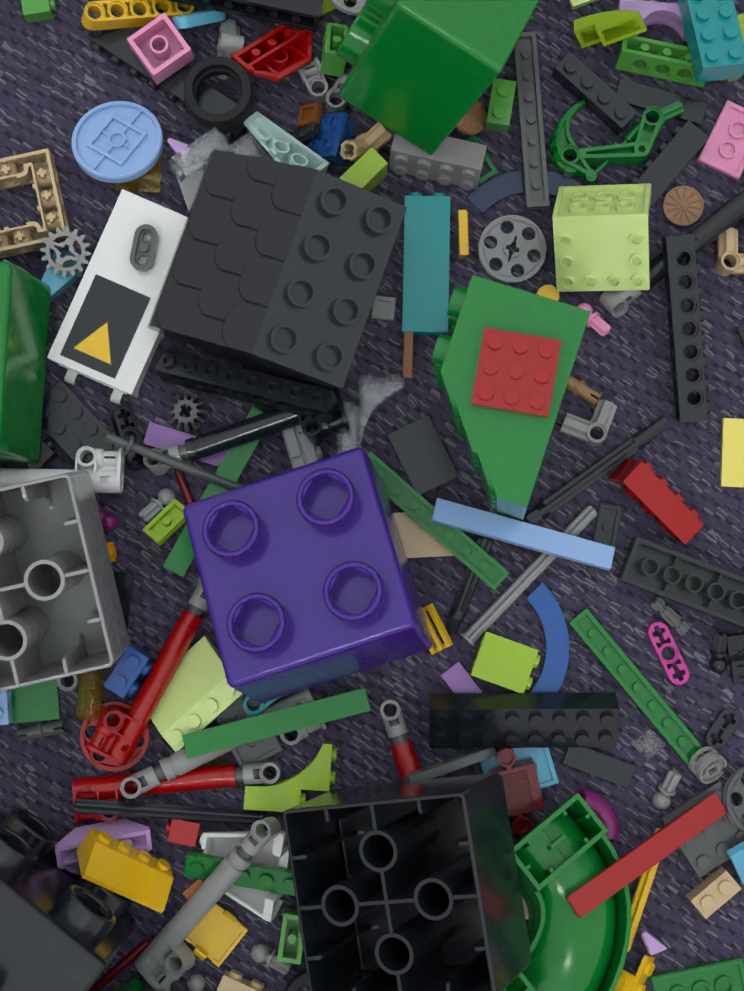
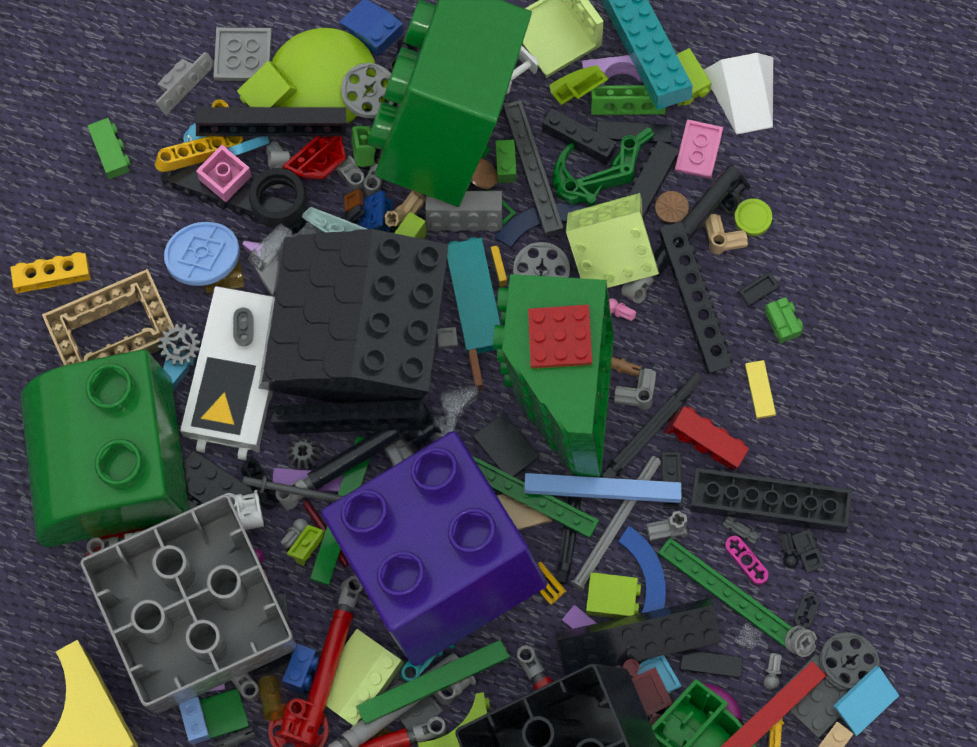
camera: 10 degrees left, 15 degrees down
(591, 596) = (671, 527): none -> light grey piece

